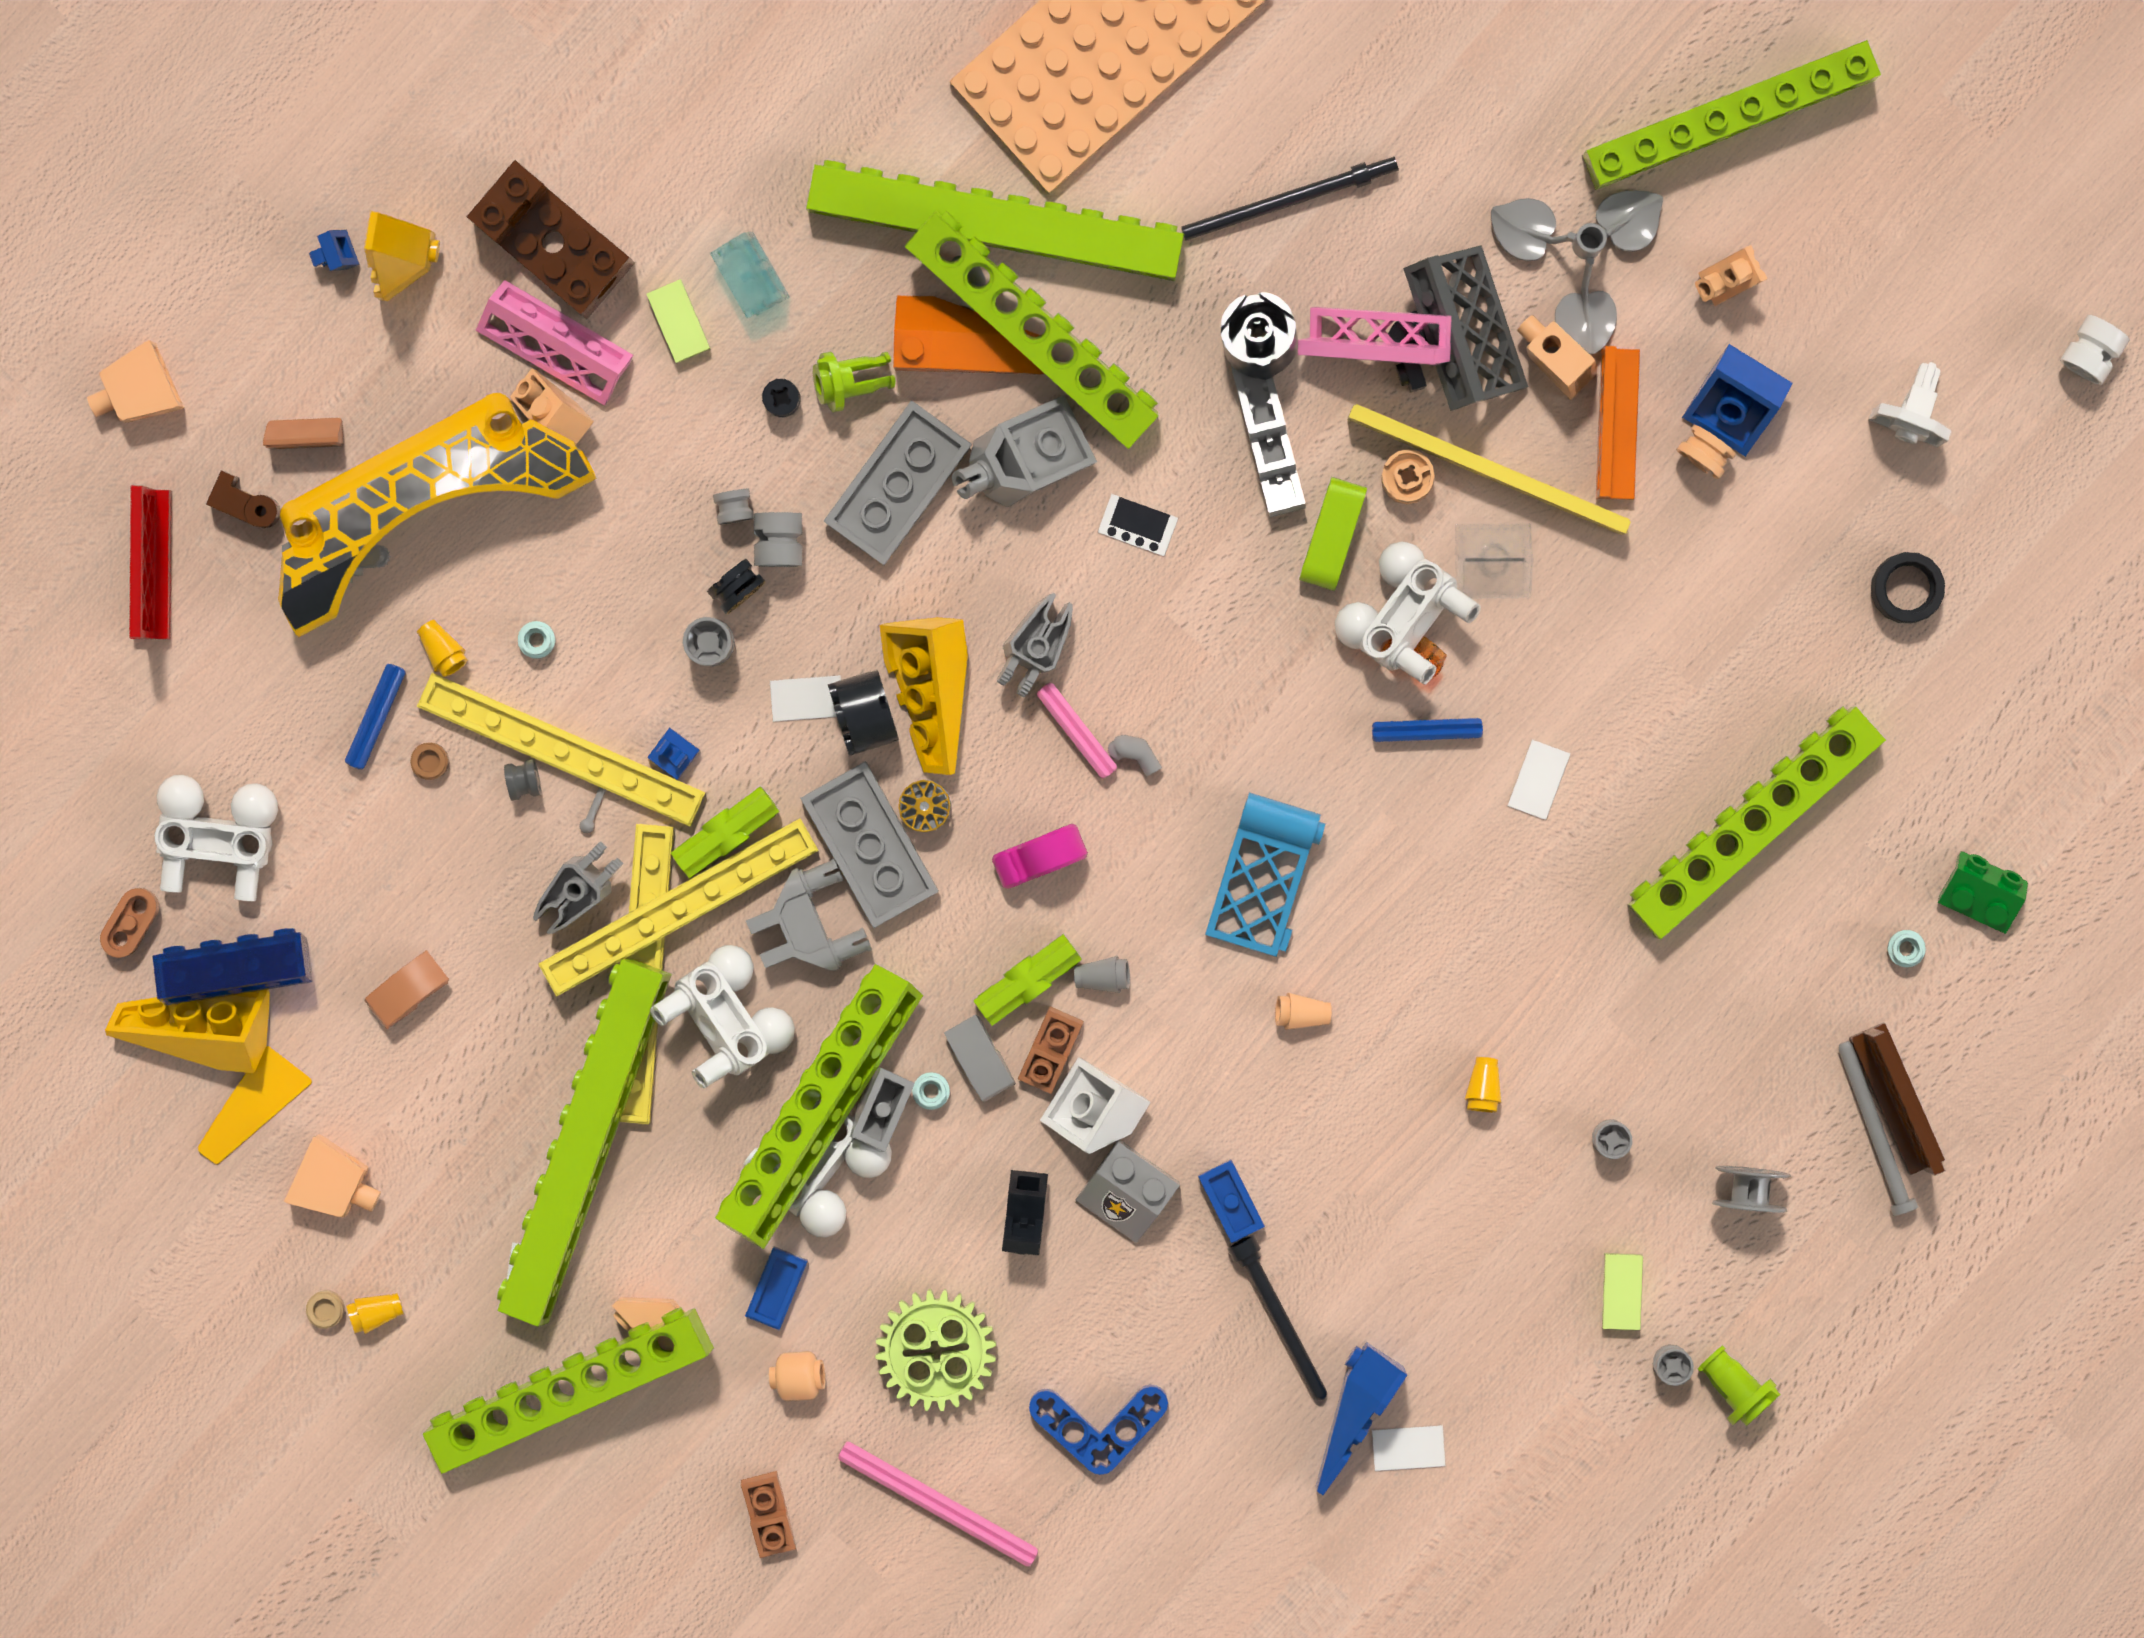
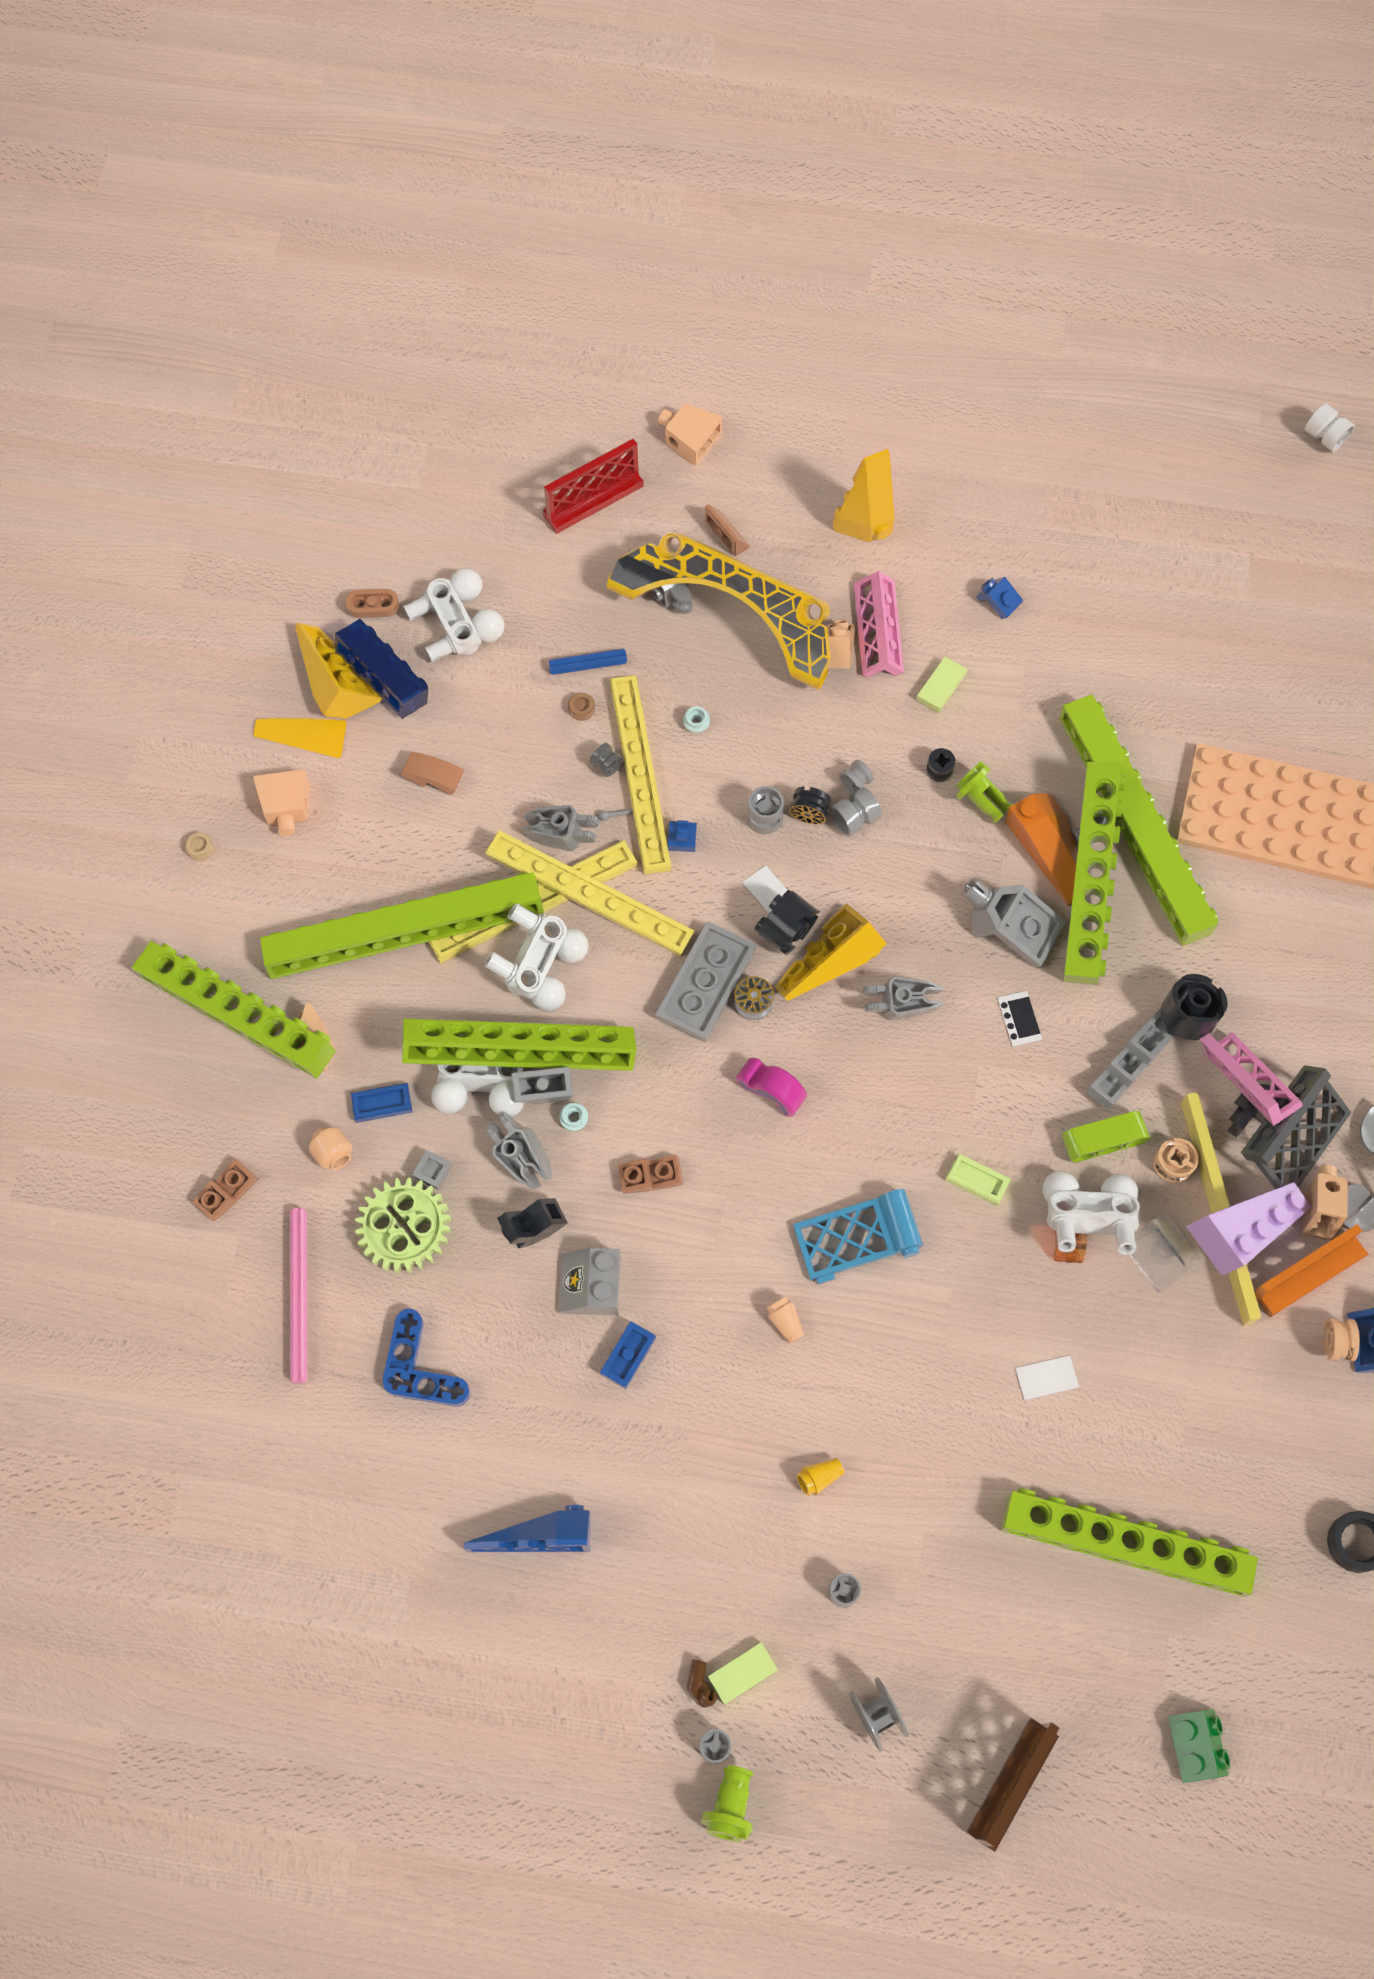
camera: 55 degrees right, 20 degrees down
(255, 510) = (661, 512): reddish brown leg -> none
(335, 251) = (841, 482): blue tile -> none
(373, 1312) = (214, 872): yellow cone -> none
(442, 650) = (653, 673): yellow cone -> none
(519, 216) = (939, 565): reddish brown plate -> none
(610, 171) = (1000, 596): none -> blue bracket
(725, 832) = (655, 892): lime piece -> none
(749, 274) = (999, 703): clear light blue hinge -> none
(802, 925) = (628, 970): light grey connector -> none
(892, 1281) = (432, 1170): none -> light grey plate
(897, 482) = (939, 859): light grey plate -> none
(937, 1177) = (520, 1152): none -> light grey hinge
(979, 1058) = (615, 1131): light grey slope -> none
(1027, 979) = (686, 1129): lime piece -> none
(1076, 730) = (866, 1061): bright pink axle -> none
(1093, 1108) = (631, 1225): white slope -> none
(1103, 975) = (723, 1177): light grey cone -> none
(1136, 749) = (881, 1105): light grey arm -> none
(1246, 1253) = (598, 1390): black piece -> none
(1286, 702) = (978, 1179): none -> yellowish green tile
(1359, 175) = (1333, 1011): black bar -> none
(1408, 1448) = (534, 1594): white sticker -> none
(1427, 730) = (1026, 1280): blue axle -> none
(1534, 469) = (1245, 1229): none -> lavender wedge
(1605, 1344) = (697, 1687): none -> reddish brown arm
(1876, 1131) = (978, 1786): light grey bar -> none
(1915, 956) = (1130, 1715): light aqua plate -> none

